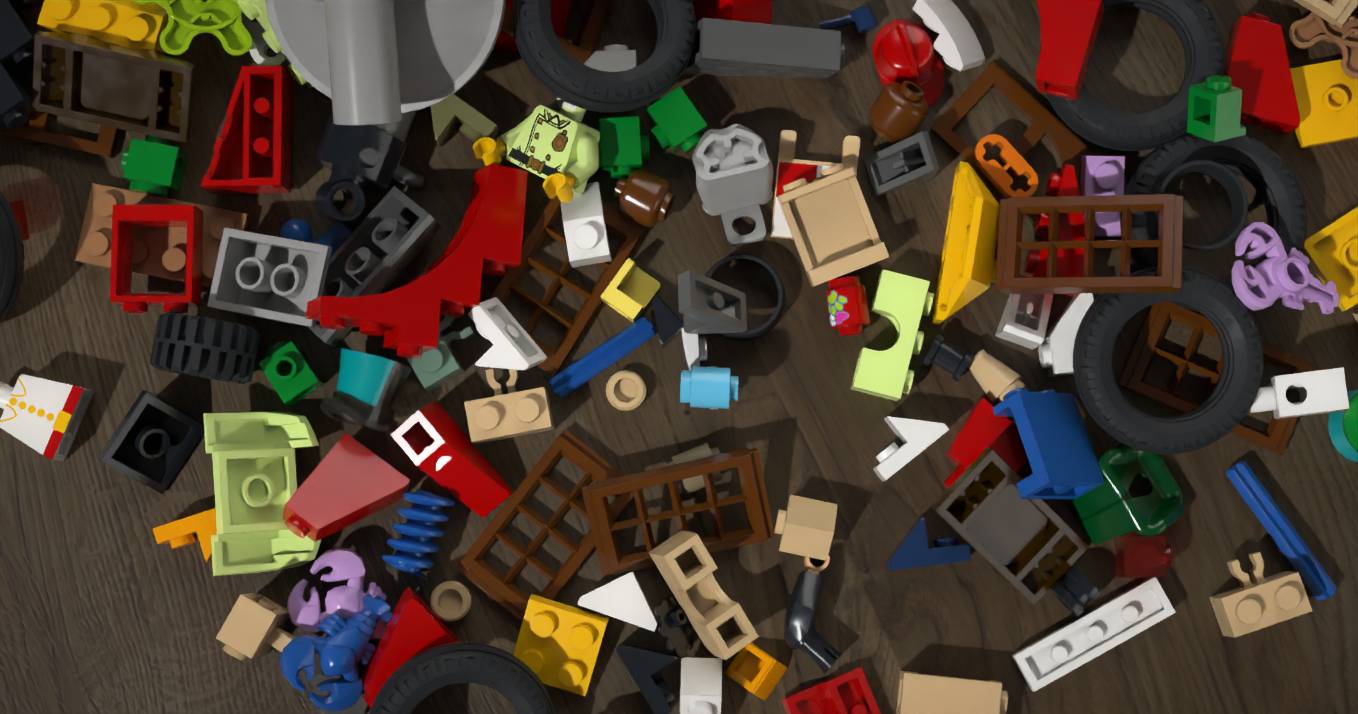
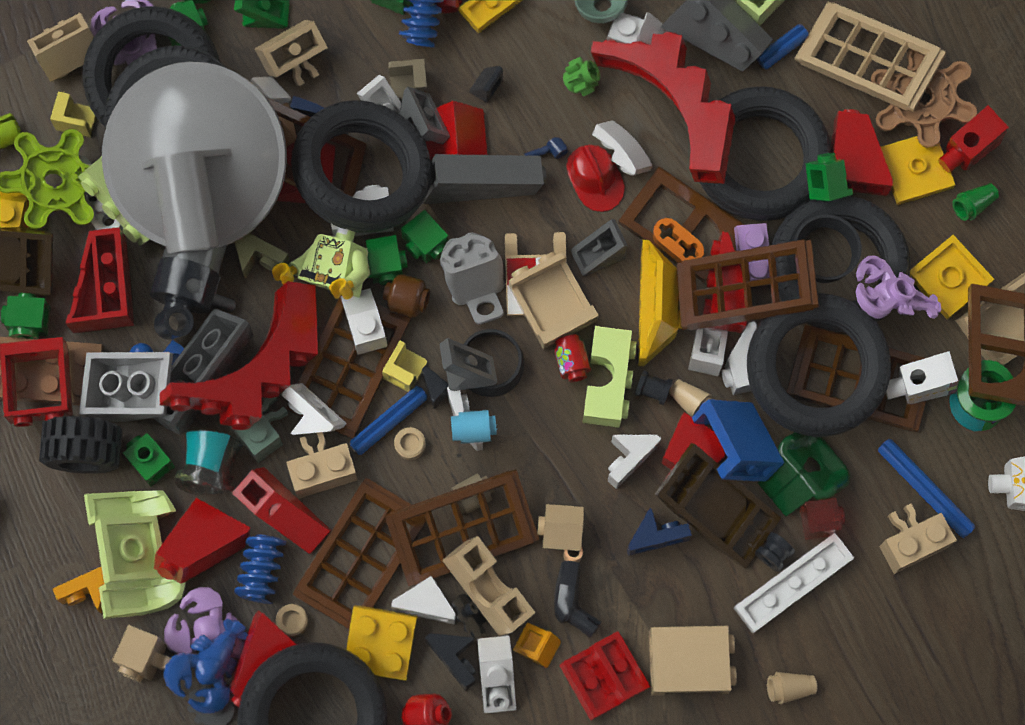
camera: 15 degrees left, 10 degrees down
(152, 441) = (45, 524): black slope -> none
(898, 111) = (591, 209): reddish brown head -> none

